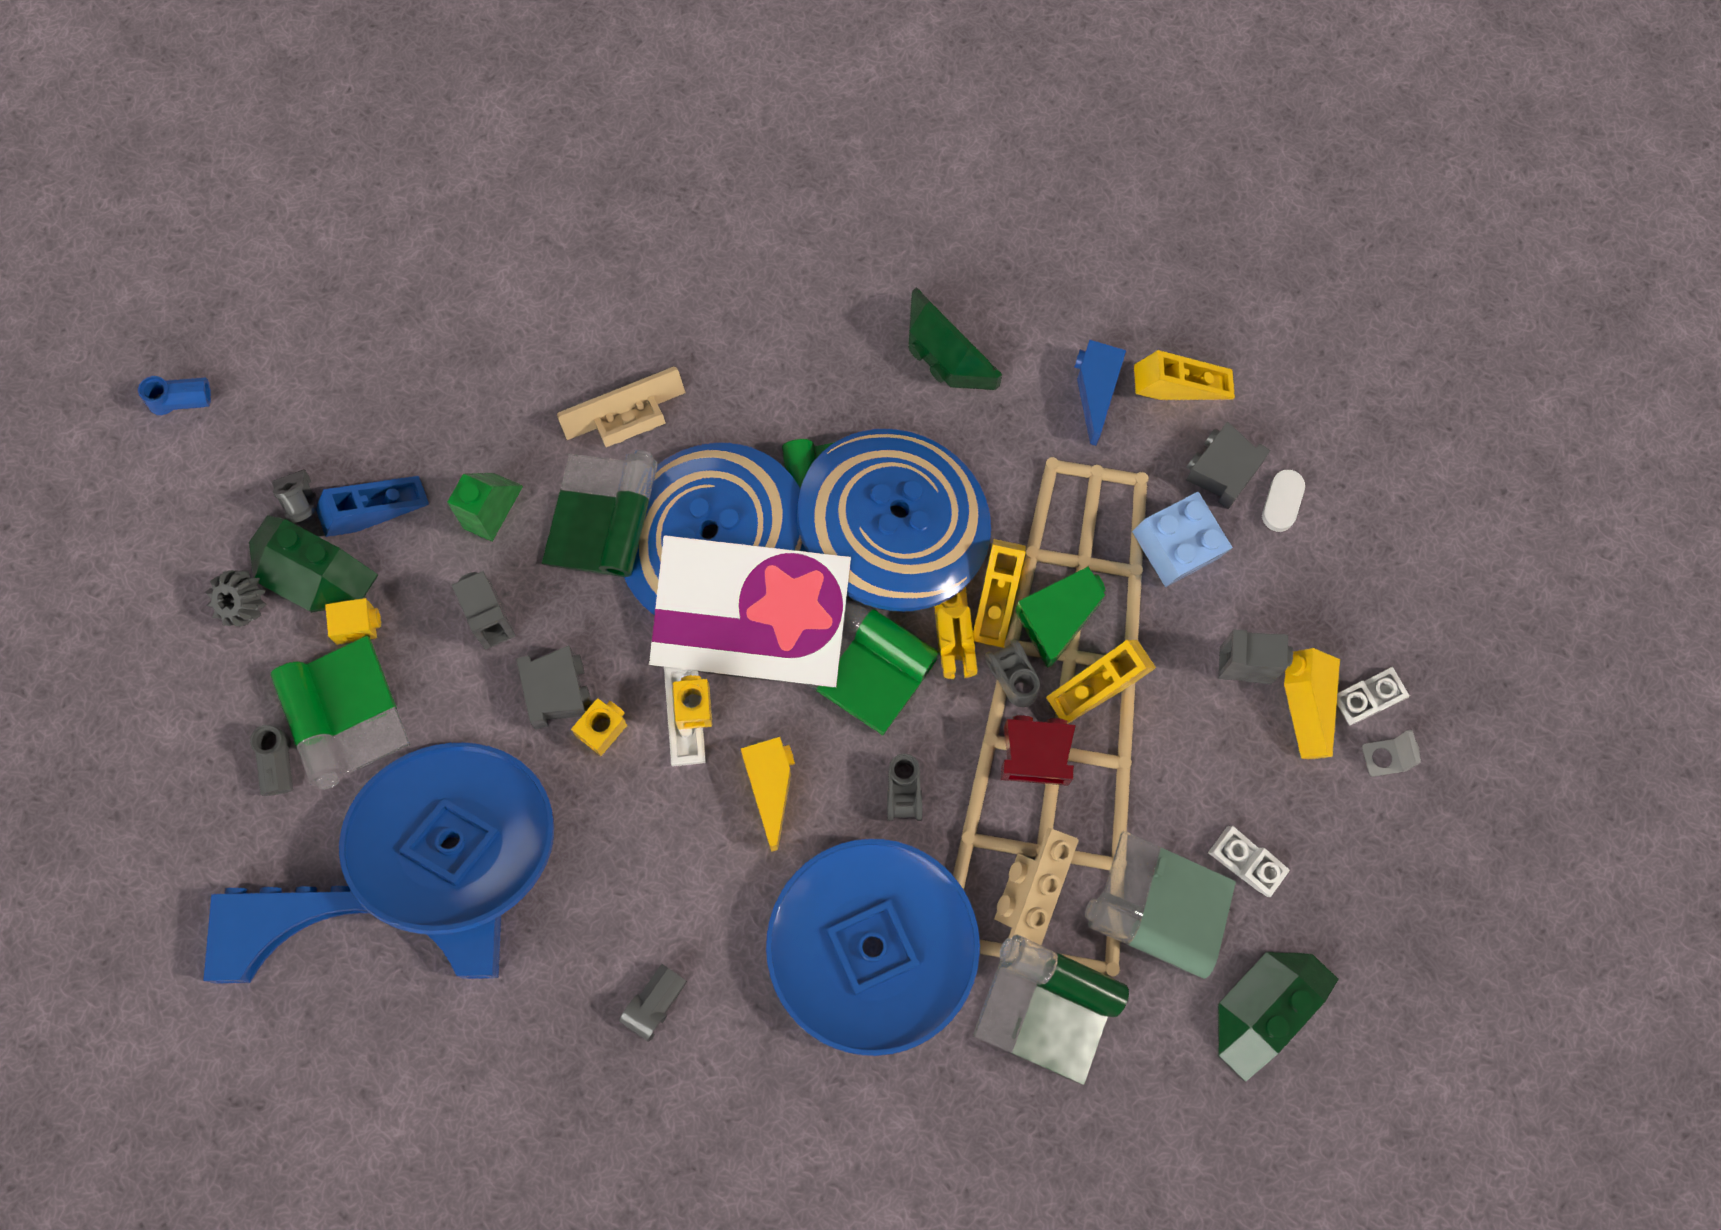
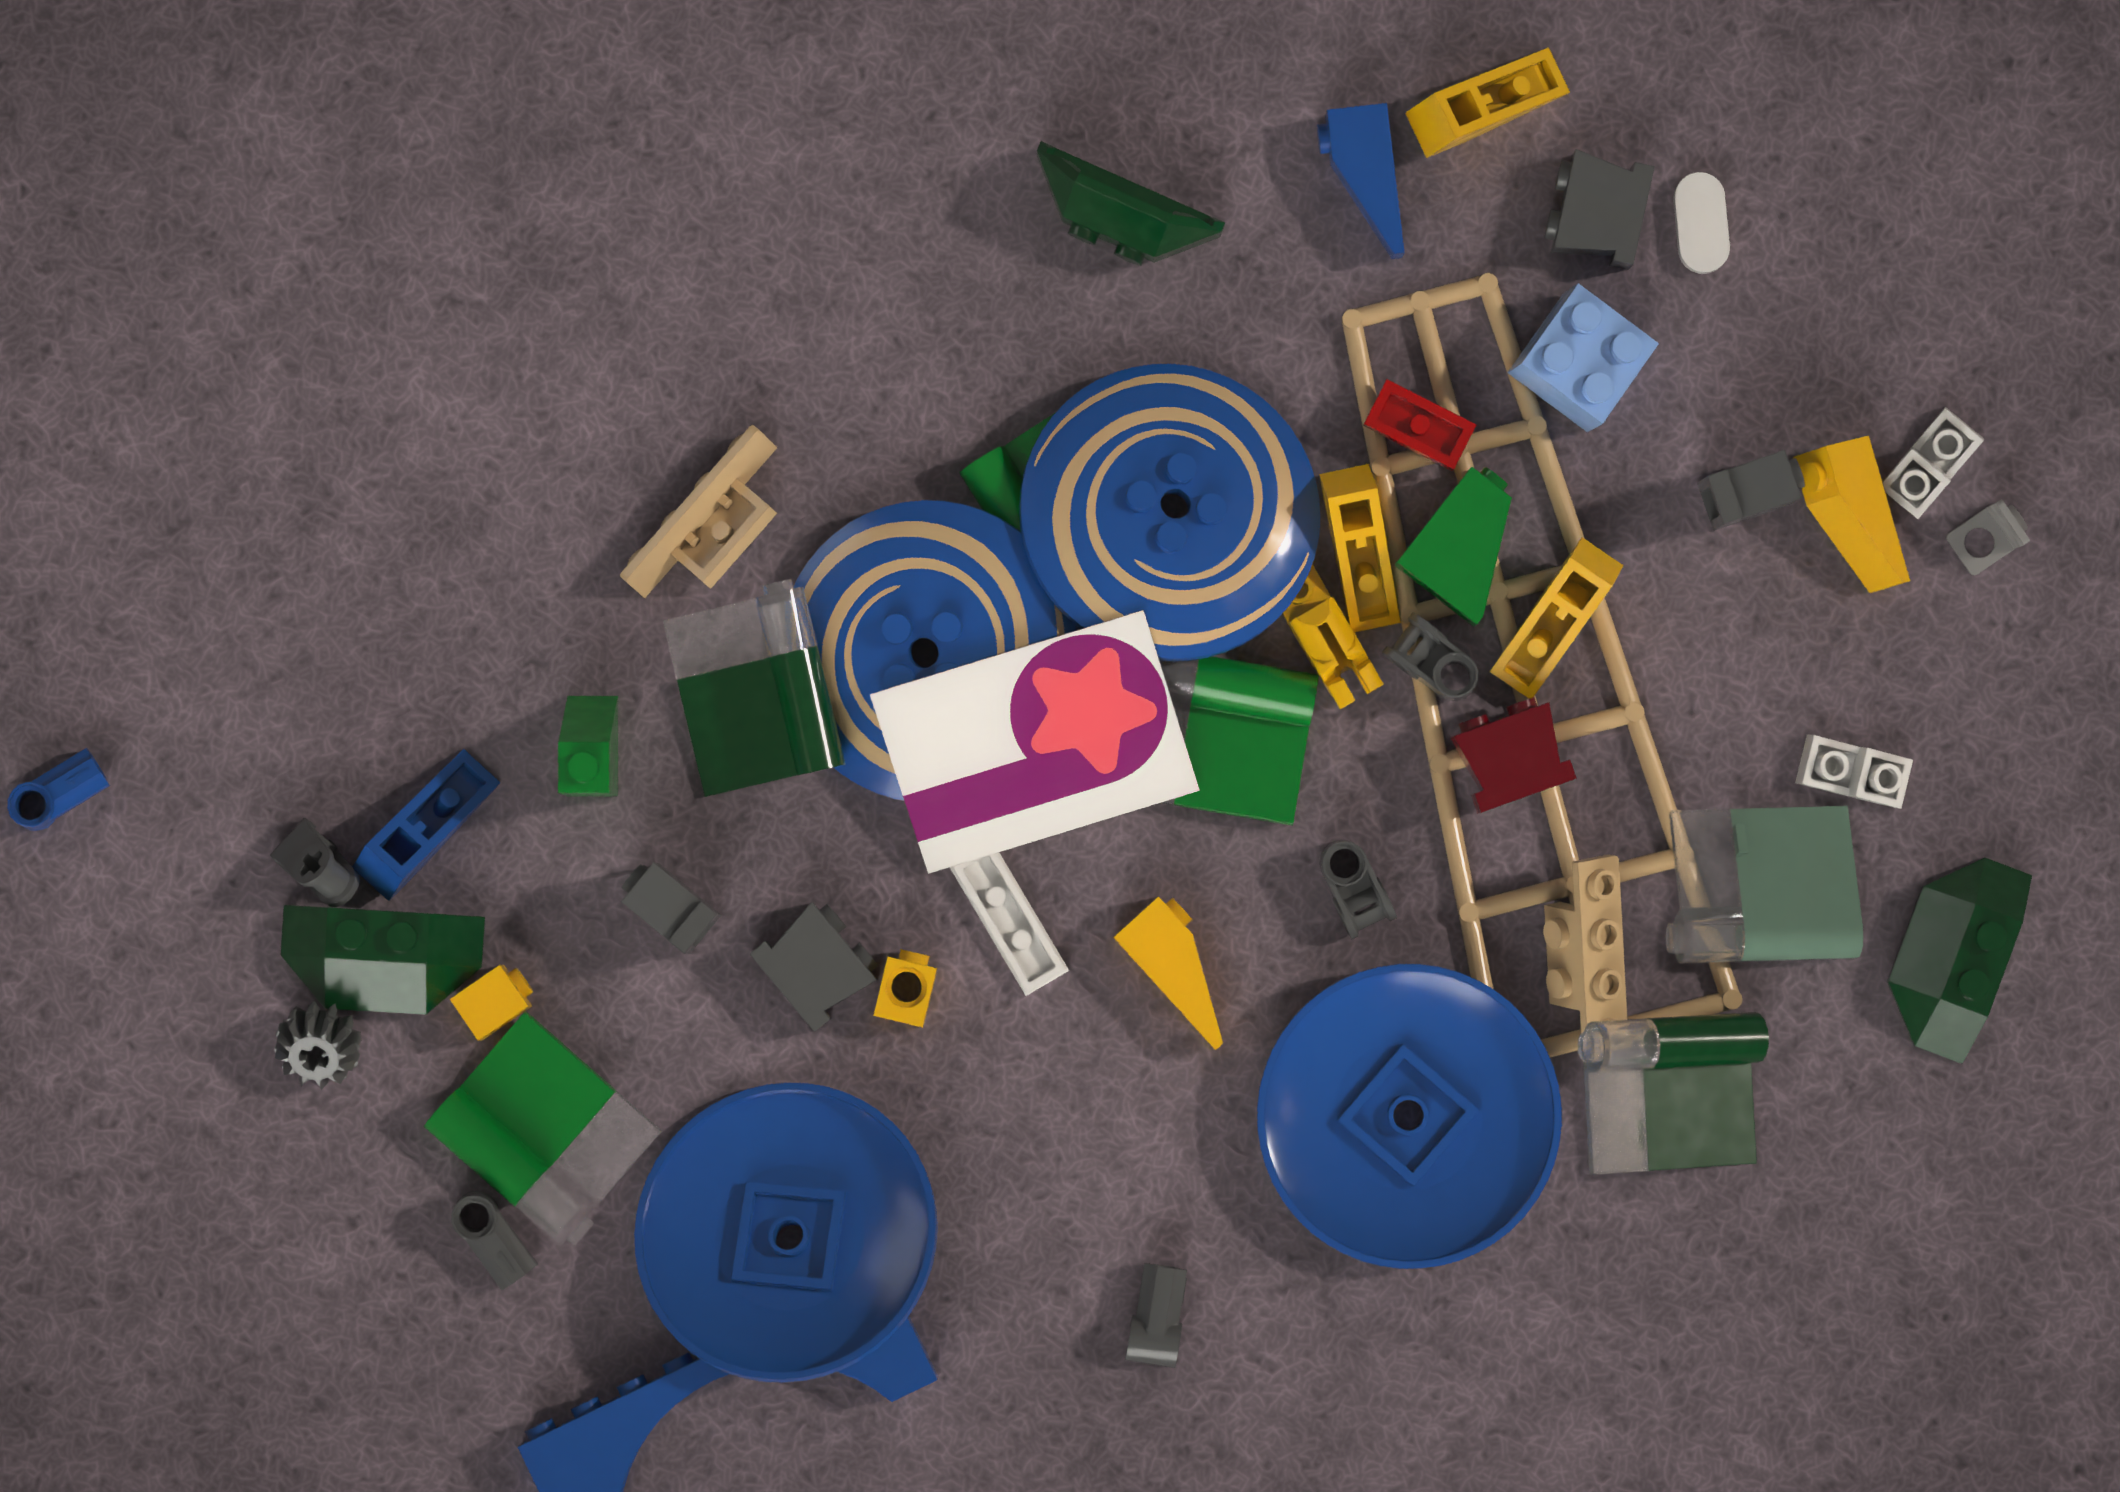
camera: 25 degrees left, 15 degrees up
(697, 716) = (1017, 926): yellow brick -> none
(1066, 535) = (1419, 425): none -> red plate

